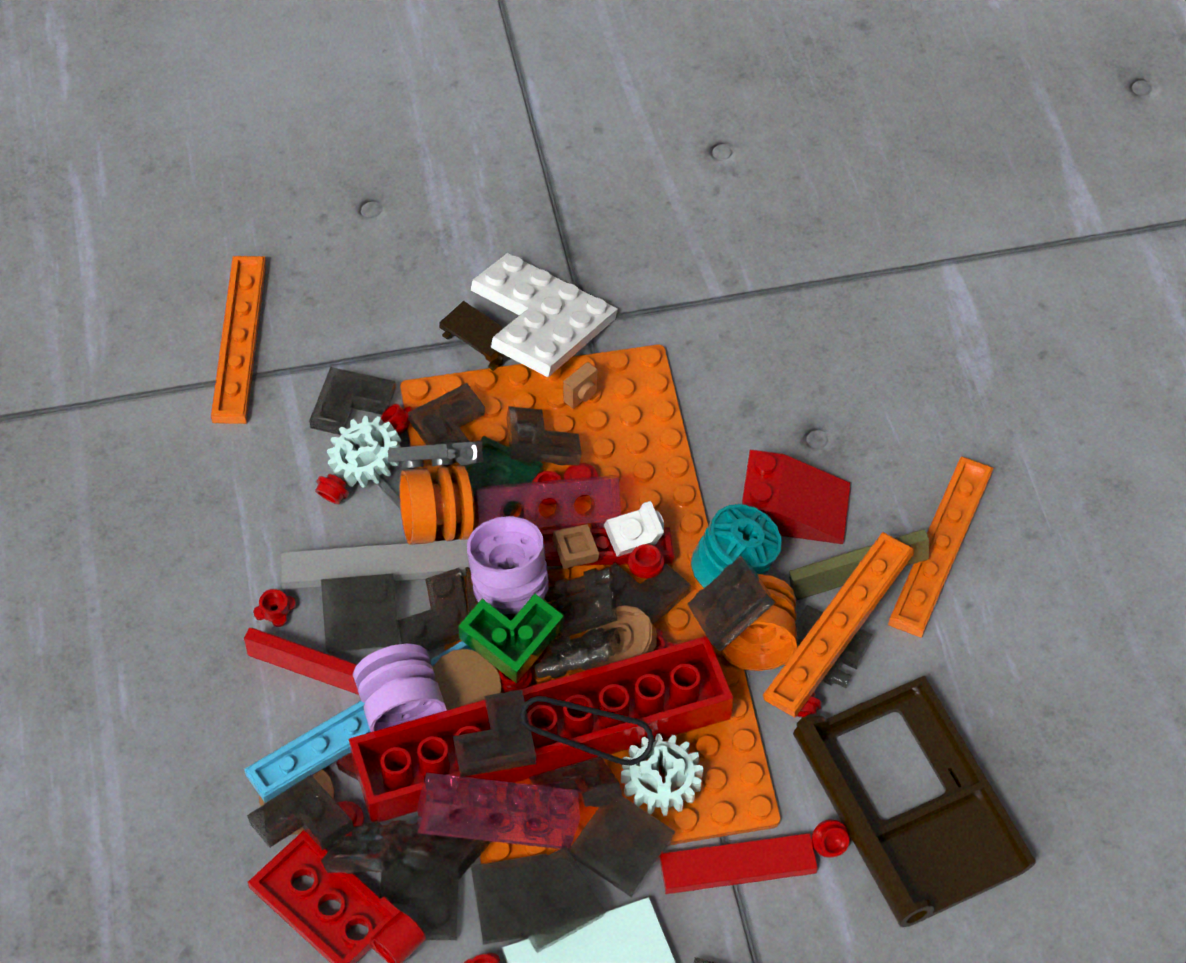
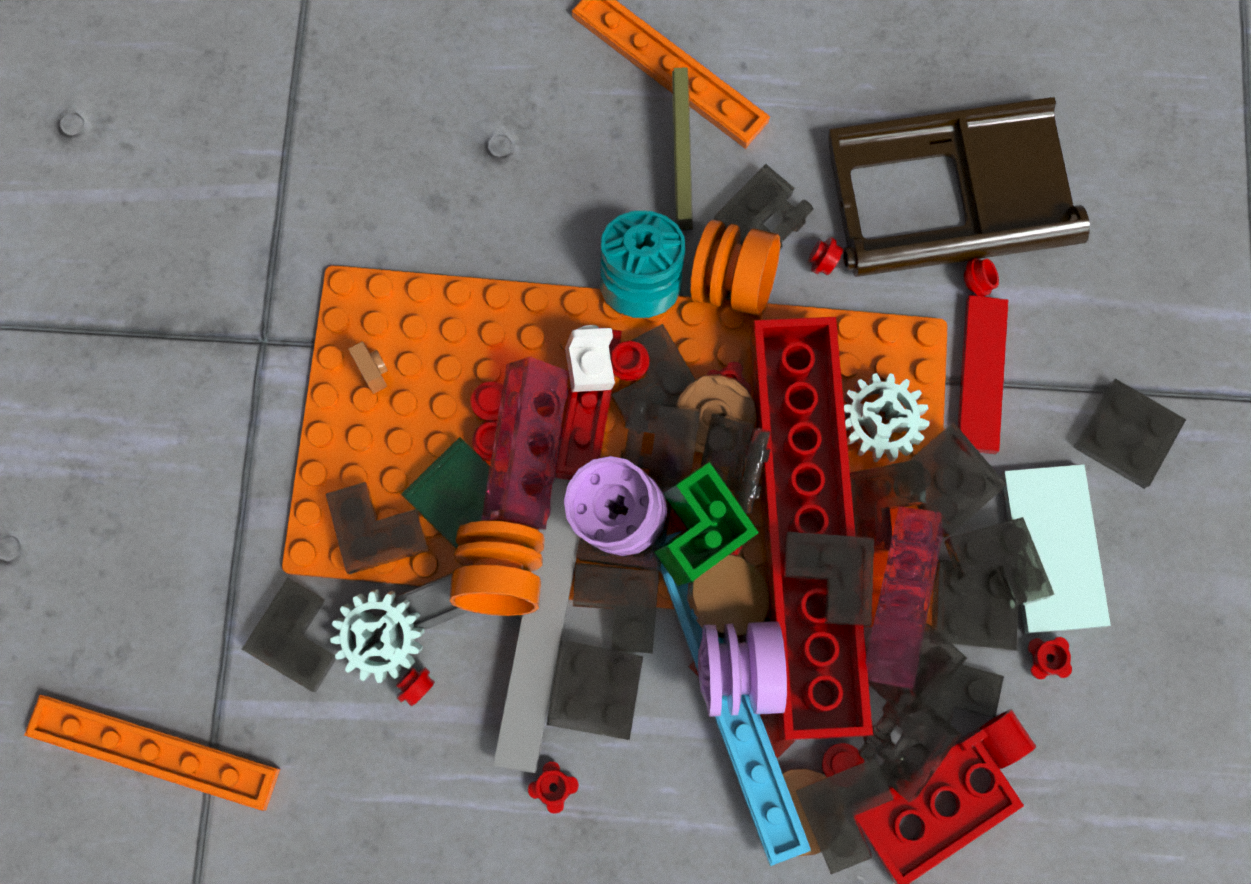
camera: 75 degrees left, 20 degrees up
(300, 659) = (645, 757): red tile -> none
(397, 417) = (339, 588): red plate -> none
(441, 454) = (424, 550): dark grey hinge -> none
(475, 330) = (252, 463): dark brown hinge -> none
(533, 443) = (433, 441): clear smoke plate -> none
(552, 314) = (252, 365): white plate -> none
(575, 546) = (598, 428): medium nougat plate -> none
(593, 711) = (819, 515): black piece -> none
(730, 603) = (729, 283): clear smoke plate -> none
(797, 497) = (576, 193): red slope -> none
(838, 624) = (761, 187): orange tile -> none

